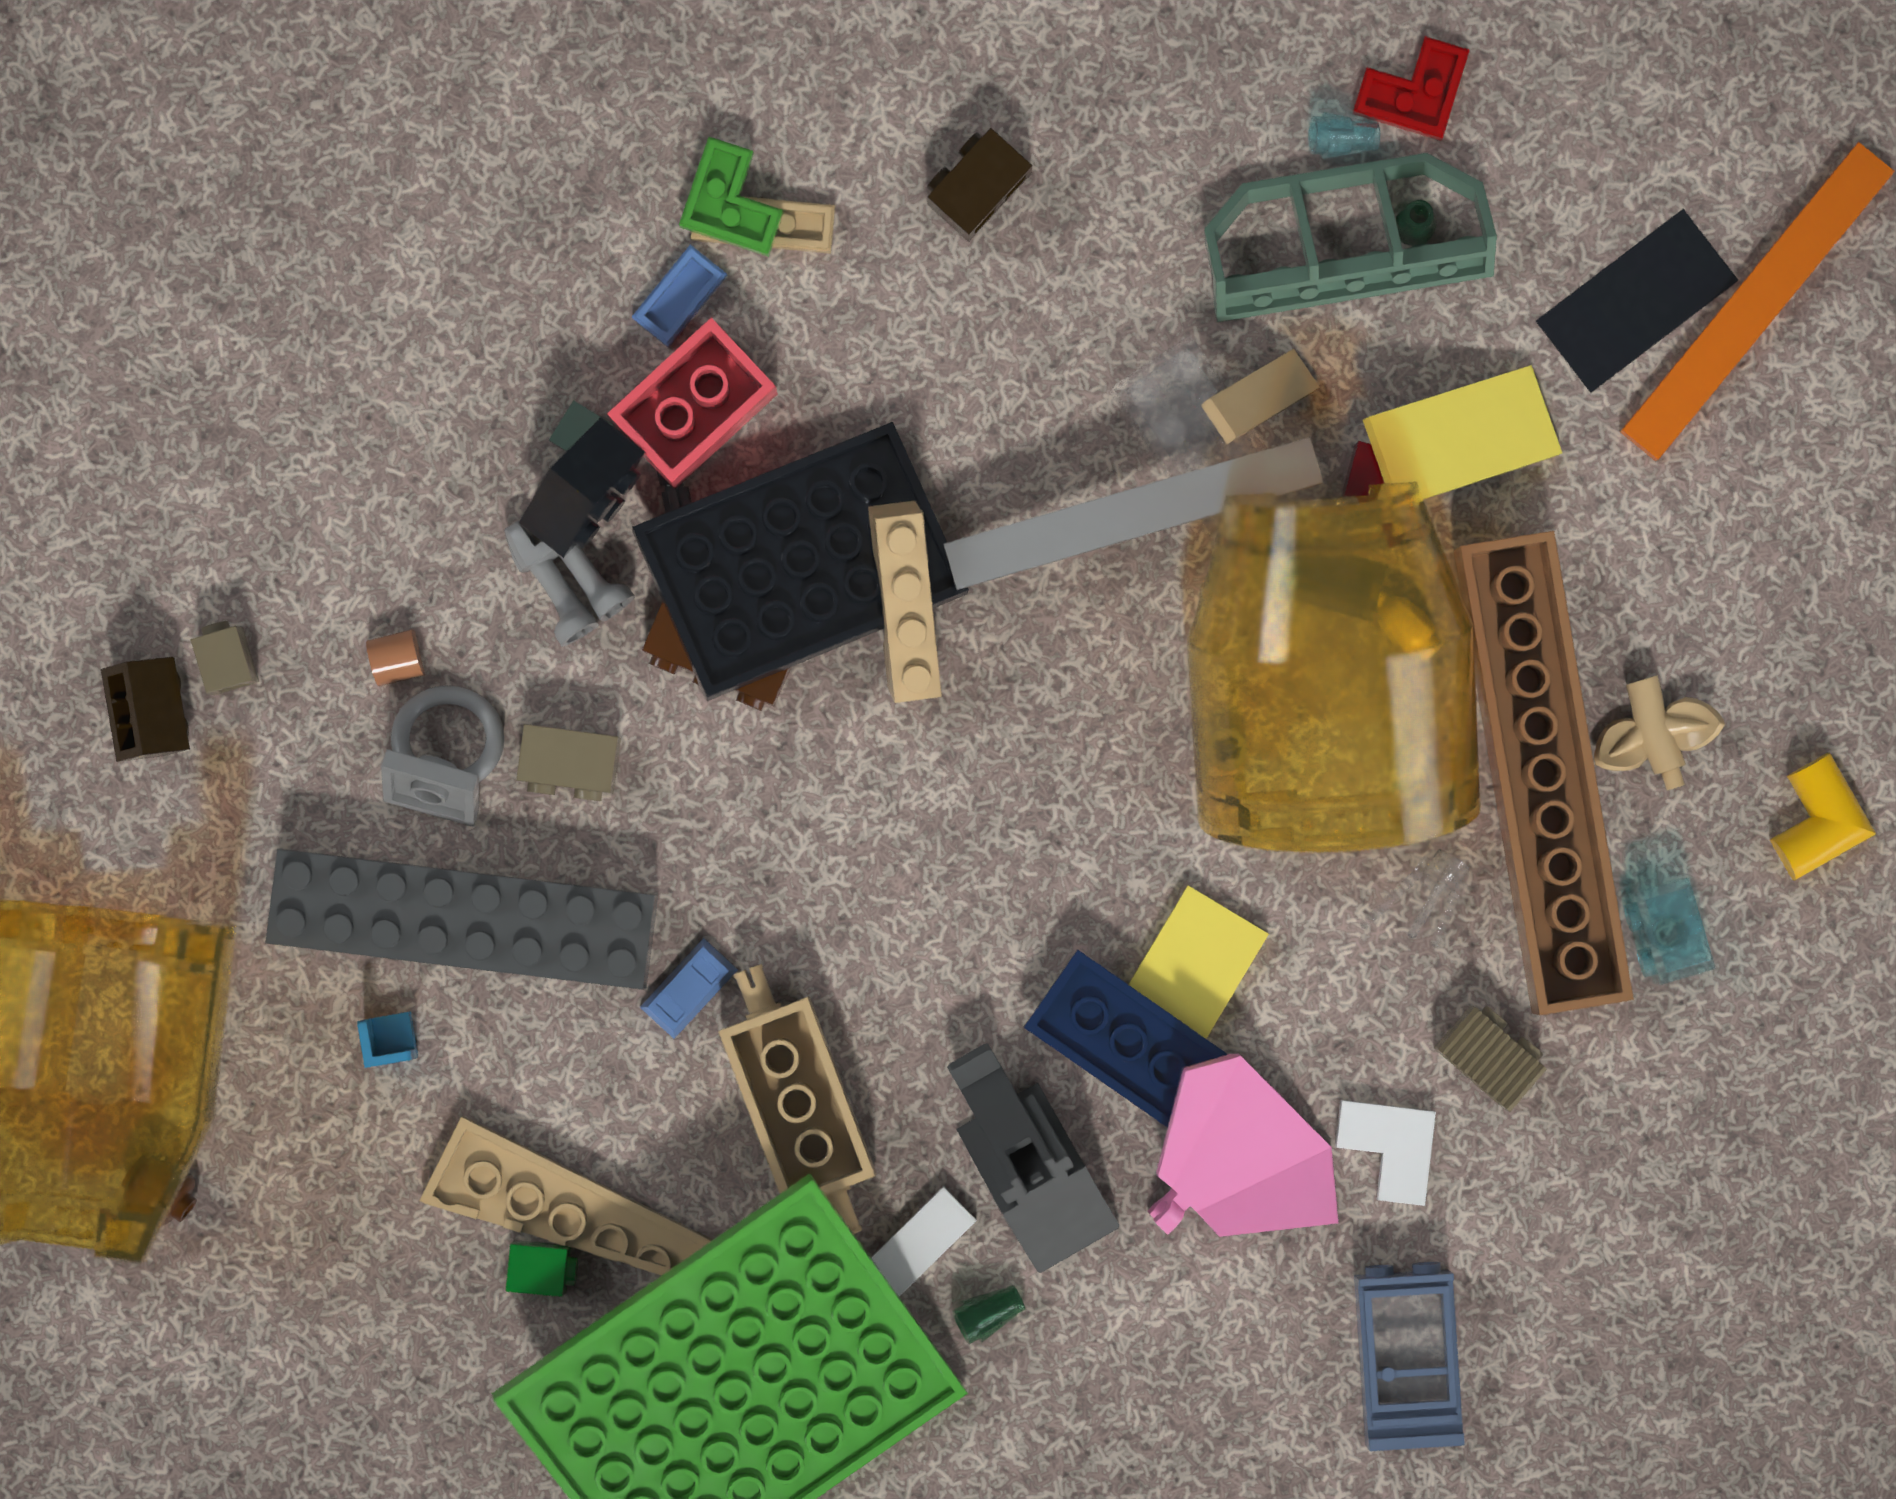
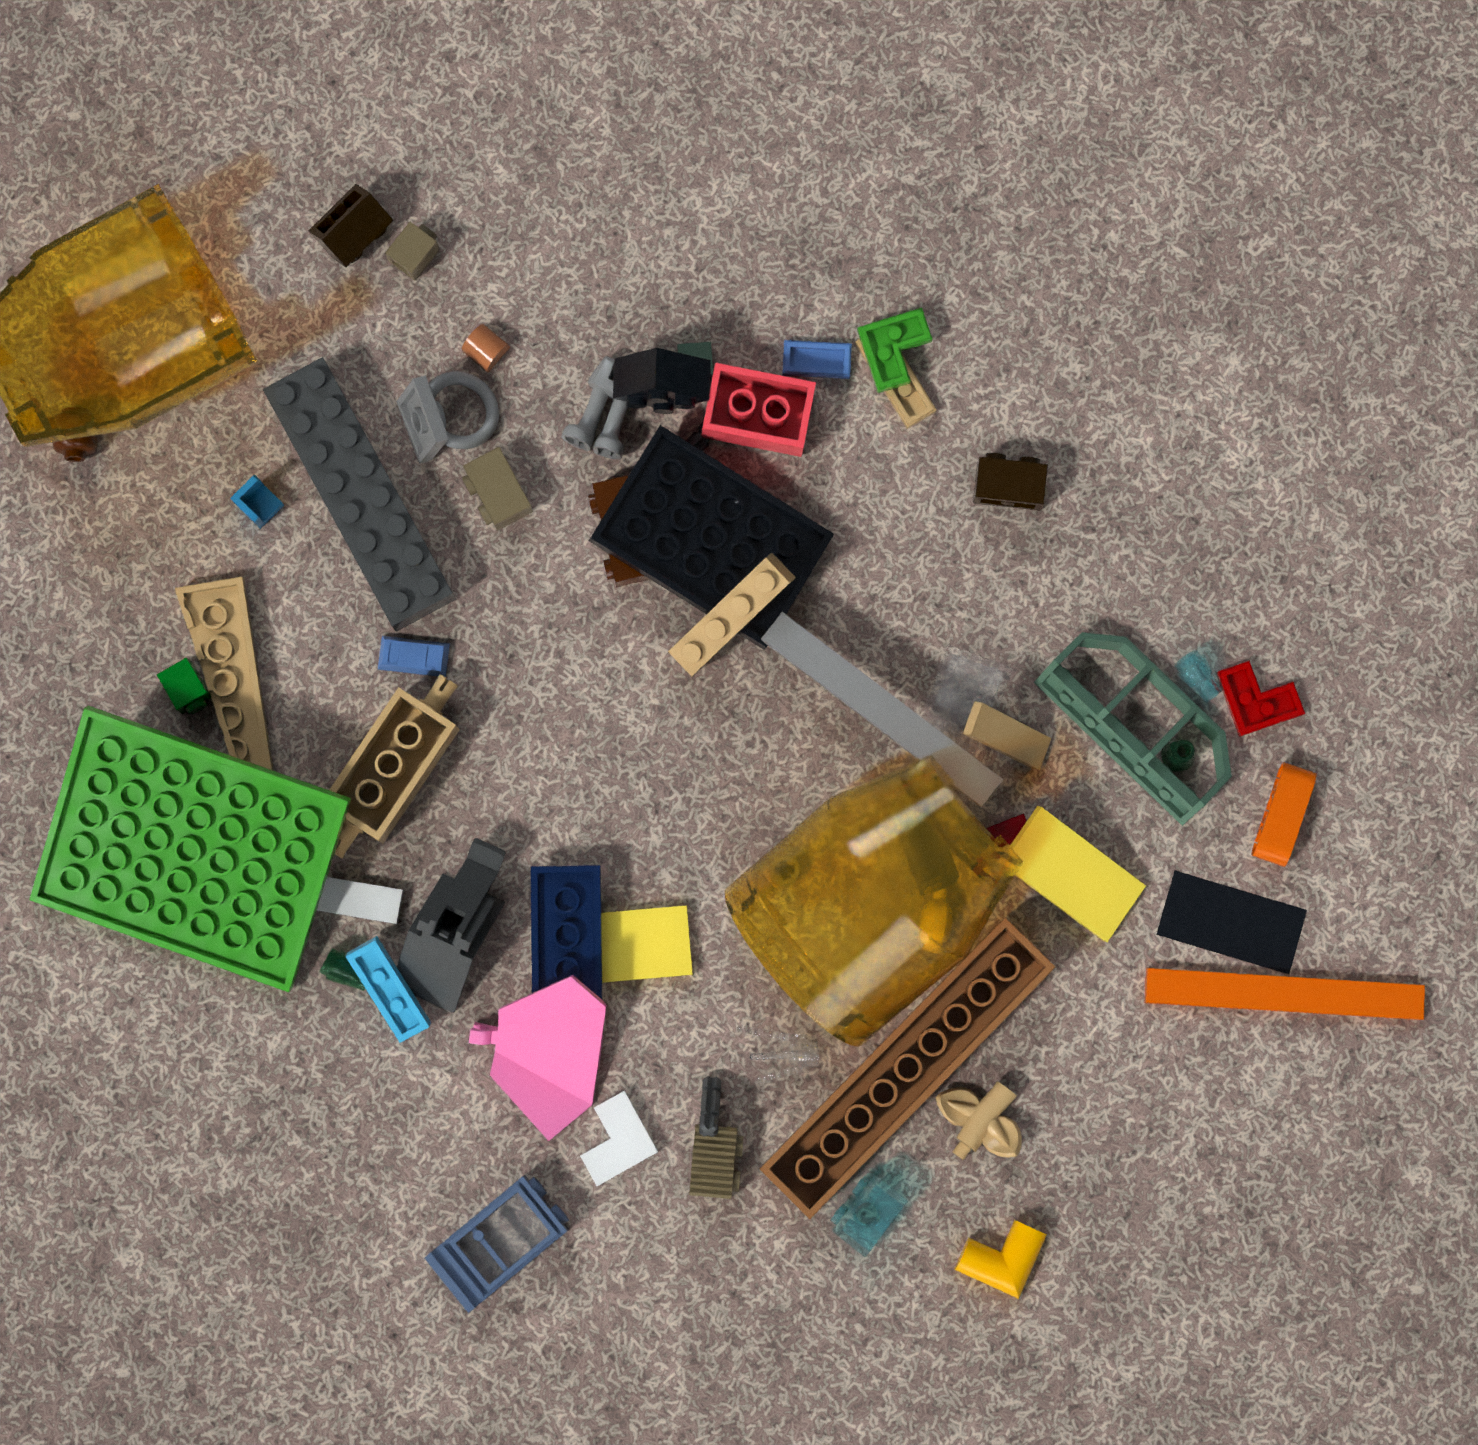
camera: 55 degrees right, 5 degrees down
(1045, 1281) = (388, 989): none -> medium azure plate
(1429, 1019) = (710, 1106): none -> dark grey axle
(1565, 155) = (1285, 814): none -> orange beam

